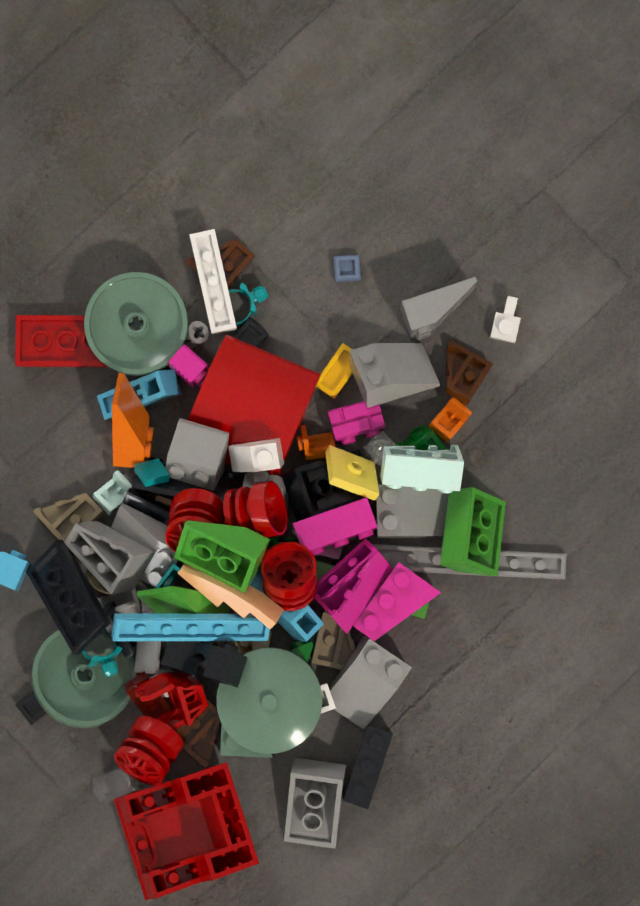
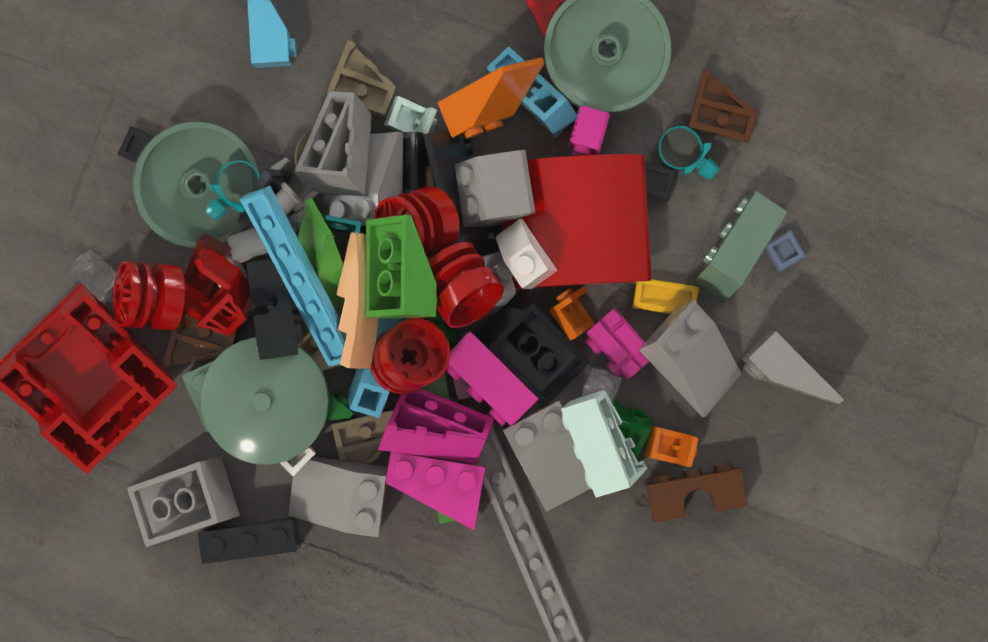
camera: 60 degrees right, 5 degrees up
(68, 597) = (271, 125): black tile -> none
(151, 472) = (450, 148): teal tile -> none
(198, 336) = (626, 123): light grey bush -> none
(213, 281) = (696, 110): white plate -> none
(328, 298) = (739, 246): none -> sand green wedge
(352, 472) = (558, 368): light yellow plate -> none
(464, 372) = (731, 436): reddish brown wing -> none
(473, 532) = (558, 532): bright green slope -> none
(497, 396) = (668, 494): none -> reddish brown arch
(506, 325) = (807, 456): white plate -> none

